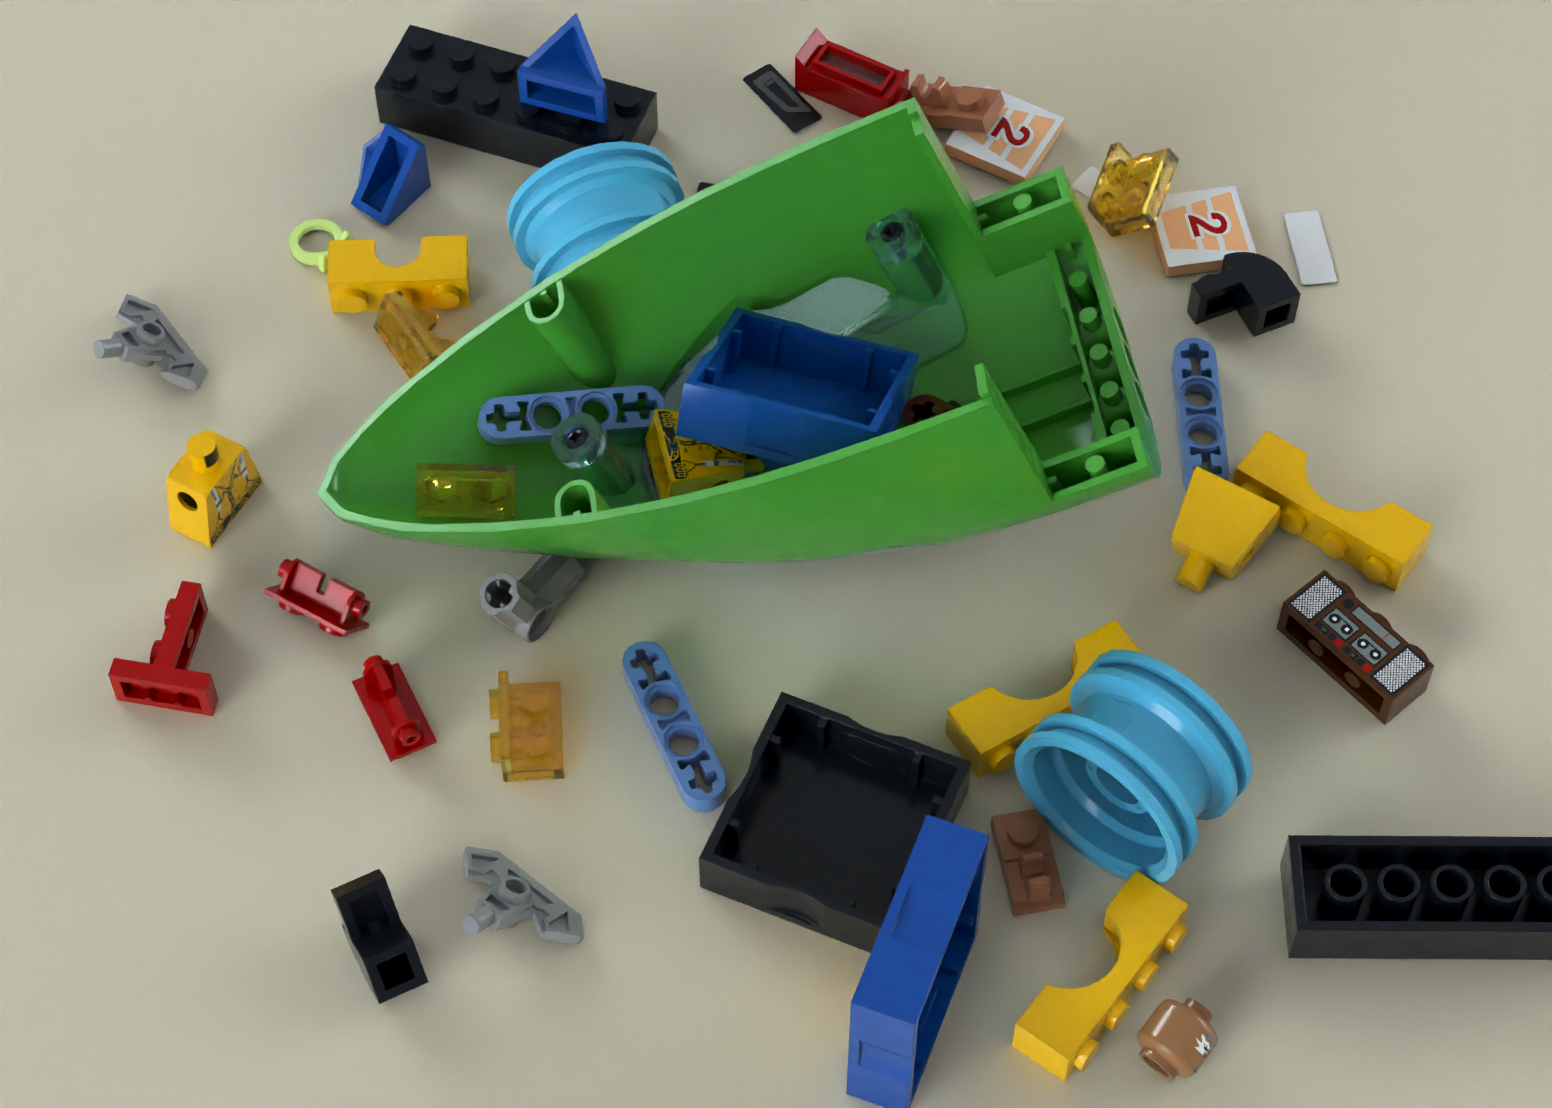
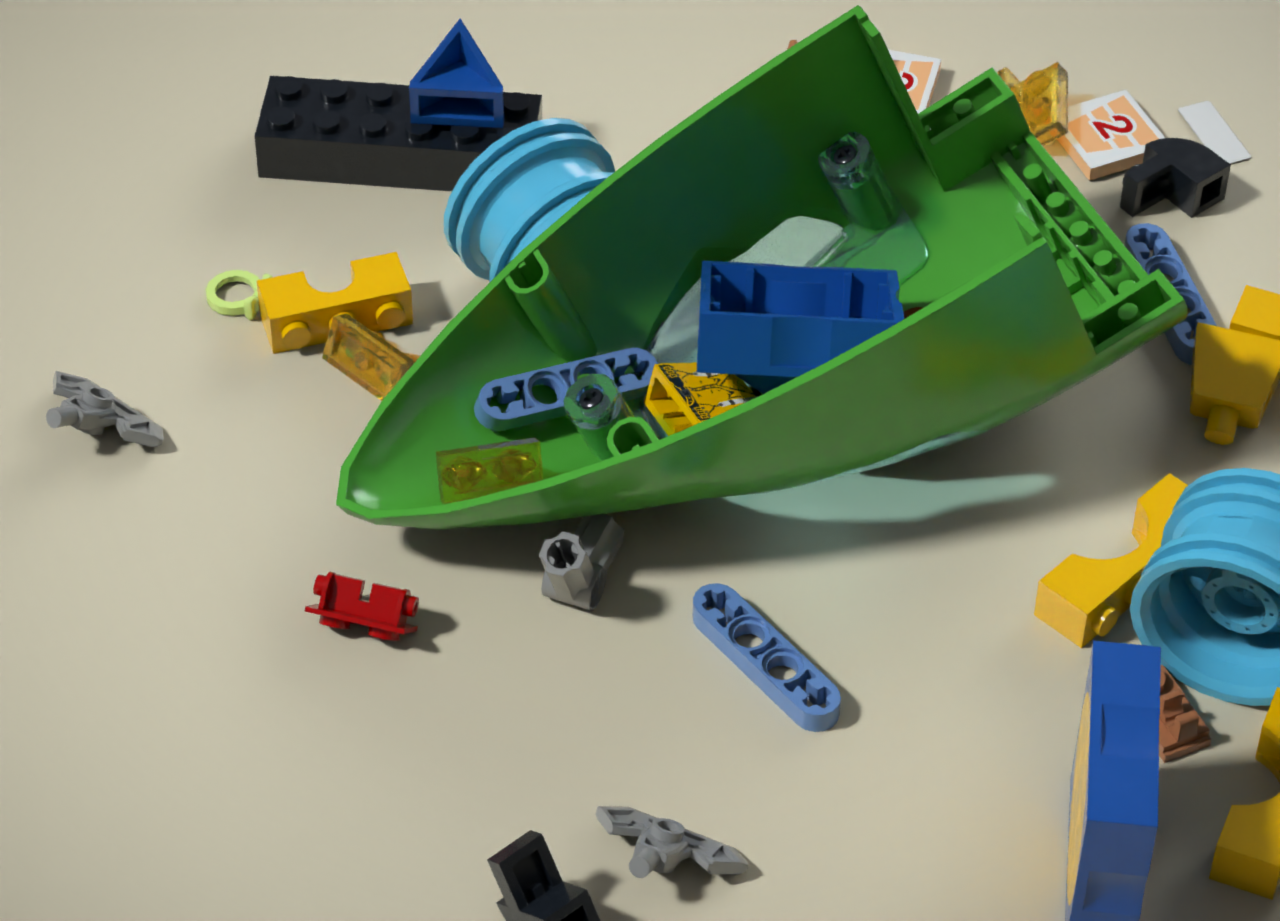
camera: 15 degrees left, 10 degrees down
(167, 679) = (226, 713): red bracket -> none
(210, 486) = (216, 508): yellow torso -> none
(391, 174) = (291, 214): blue slope -> none
(393, 708) = (473, 695): red hinge -> none
(529, 729) = (620, 688): clear yellow bracket -> none
(782, 98) = (656, 90): black sticker -> none
(828, 820) = (965, 711): black tile -> none
(848, 78) = (714, 57): red window -> none

